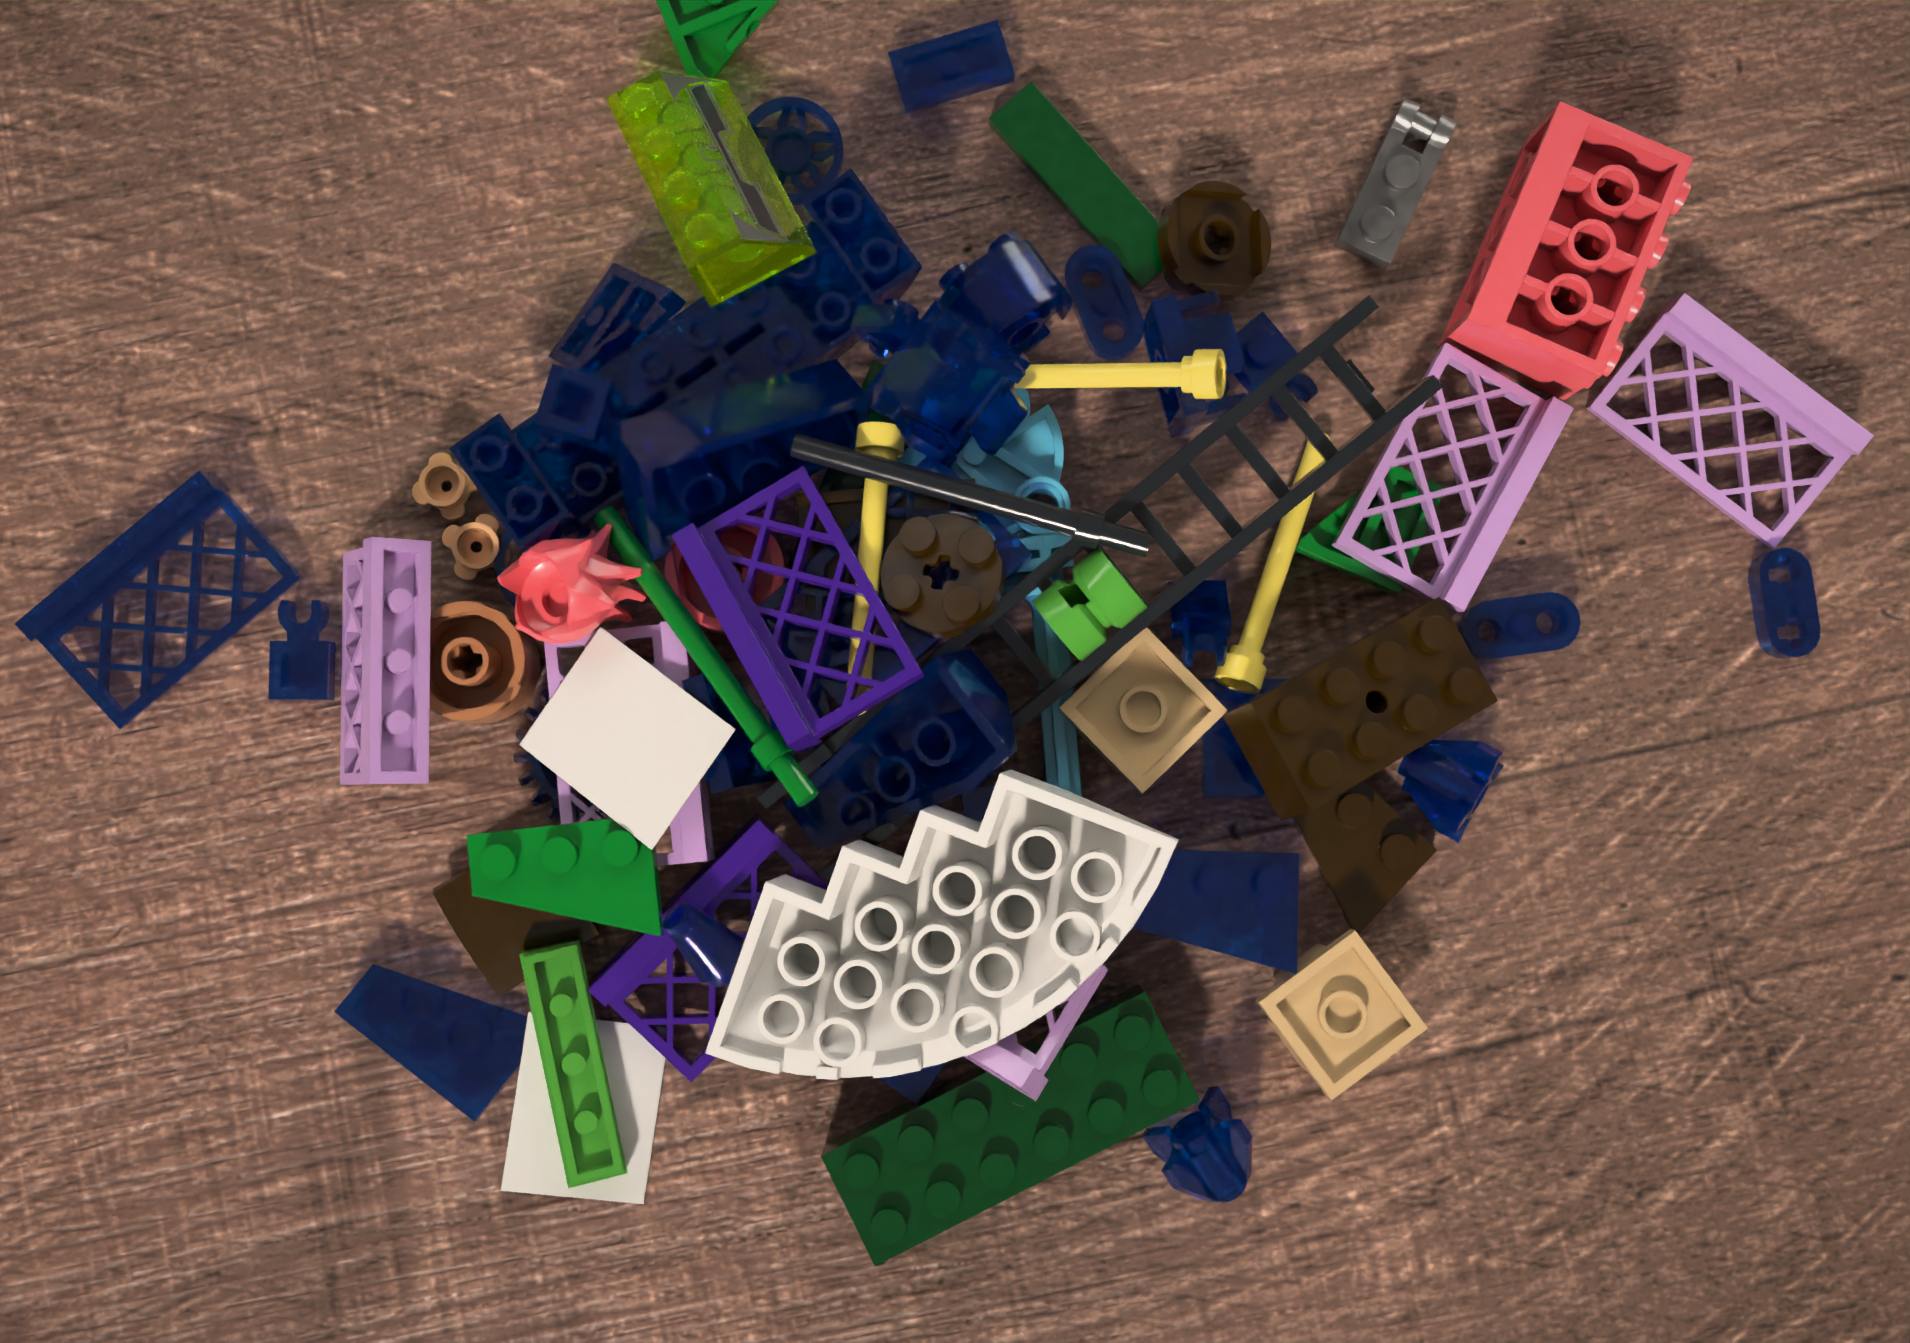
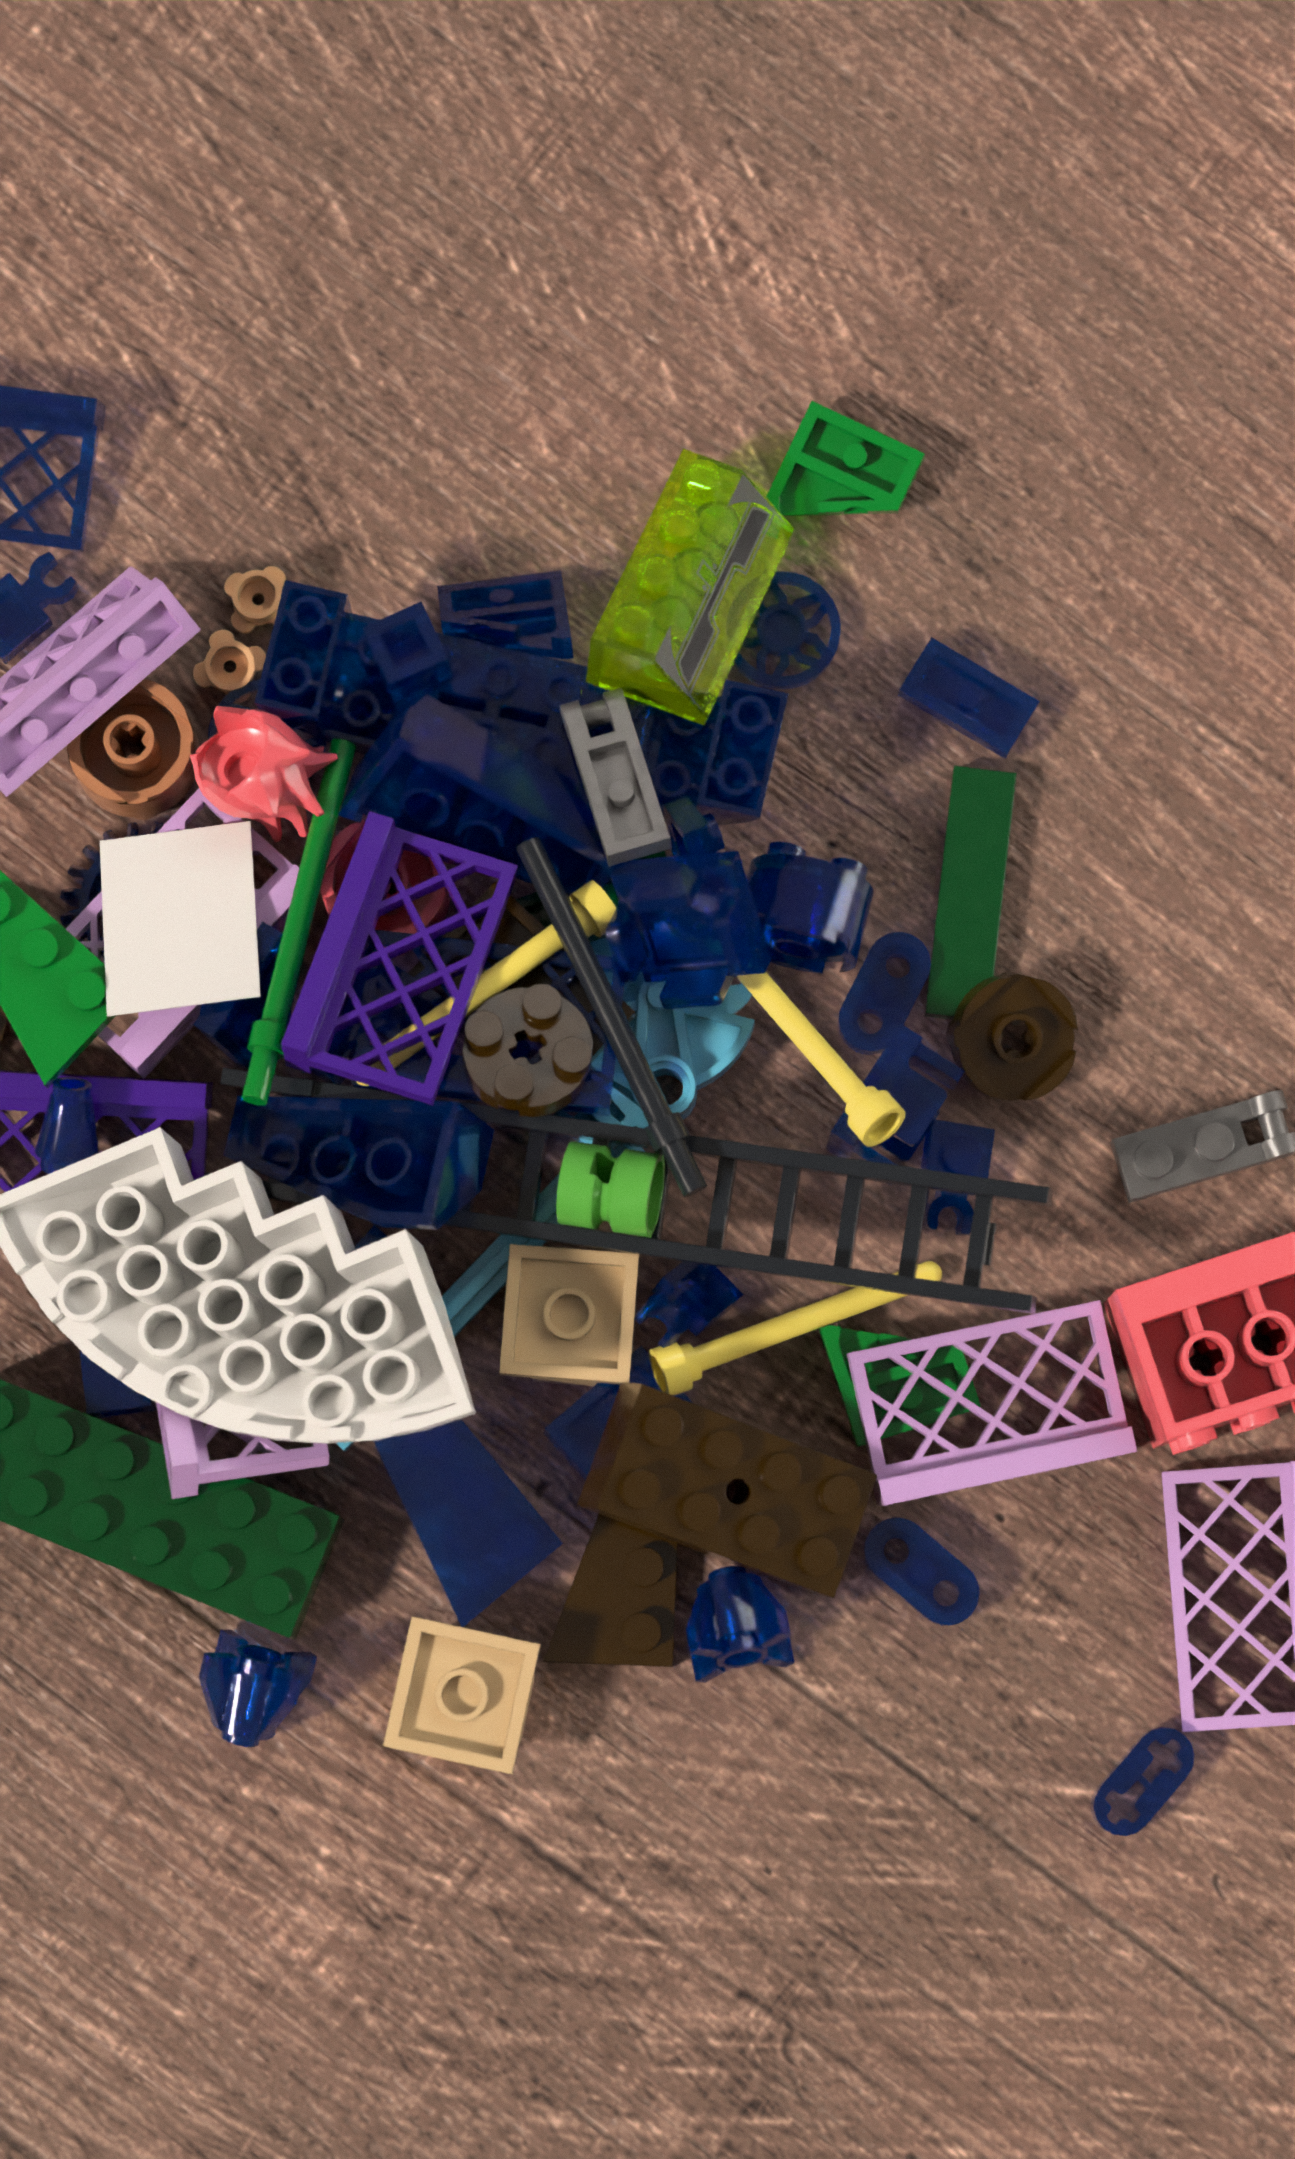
camera: 50 degrees right, 5 degrees down
(801, 343) = (616, 778): none -> flat silver plate

